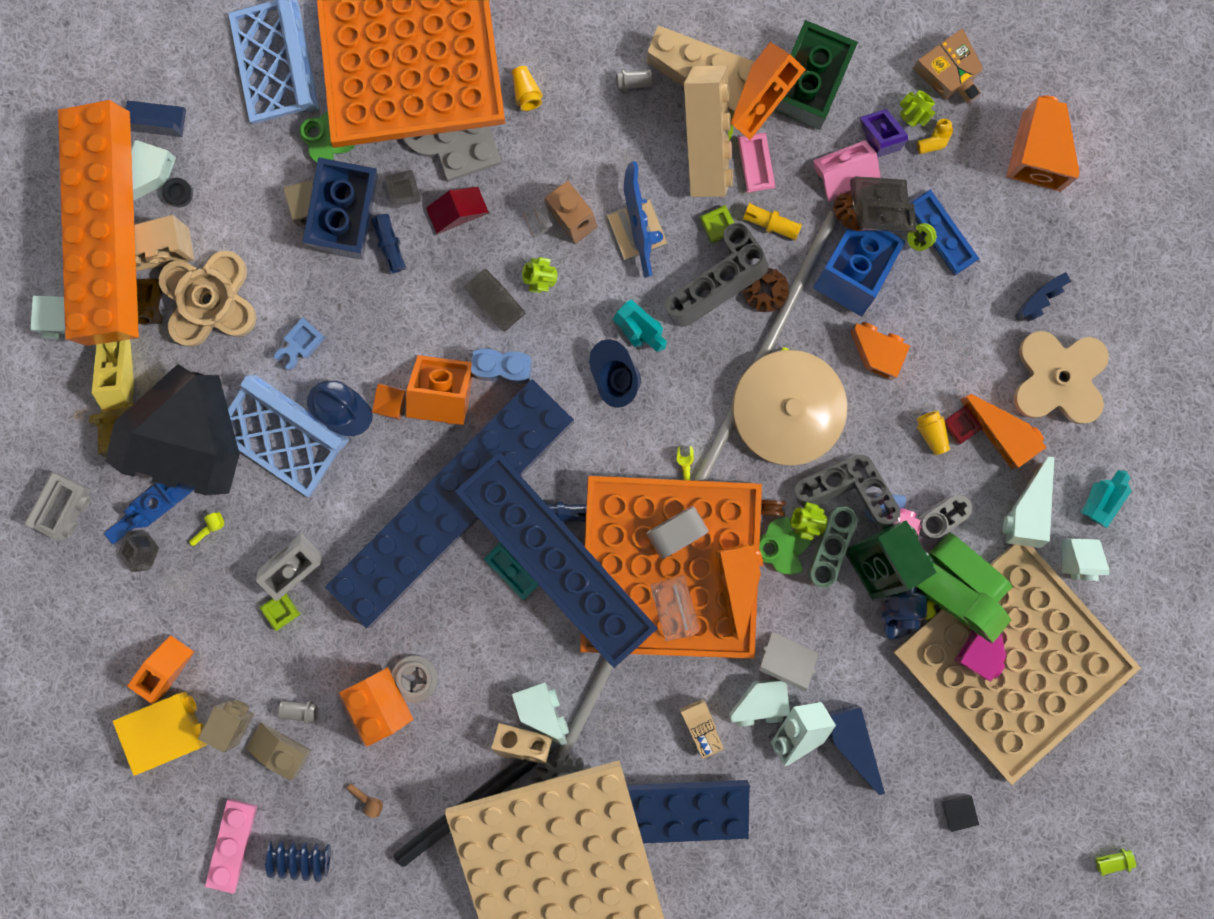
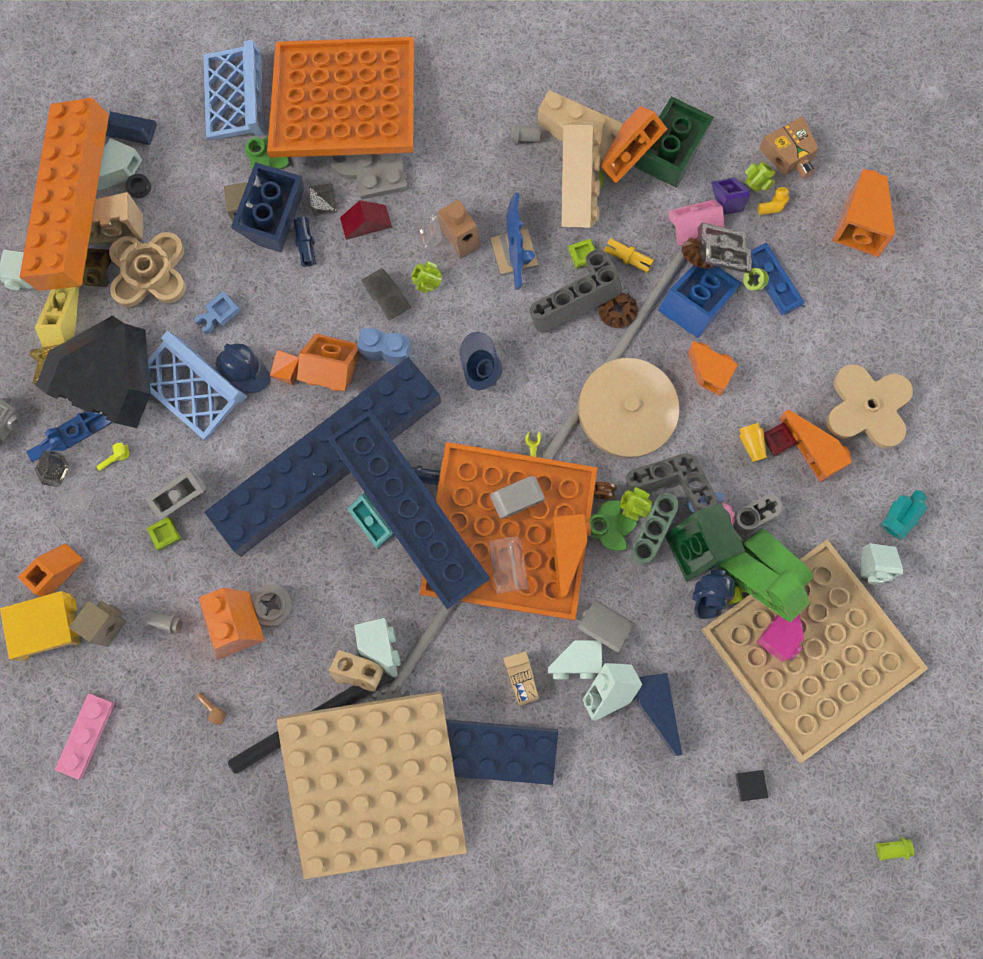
camera: 15 degrees right, 10 degrees down
(278, 752) = (141, 655): dark tan slope -> none
(297, 861) = (140, 757): dark blue piece -> none
(526, 90) = (435, 133): yellow cone -> none
(639, 326) = (505, 326): teal rock -> none
(756, 163) = (620, 207): bright pink tile -> none
(1031, 515) = (834, 521): light aqua slope -> none
(1040, 298) = (857, 337): dark blue slope -> none

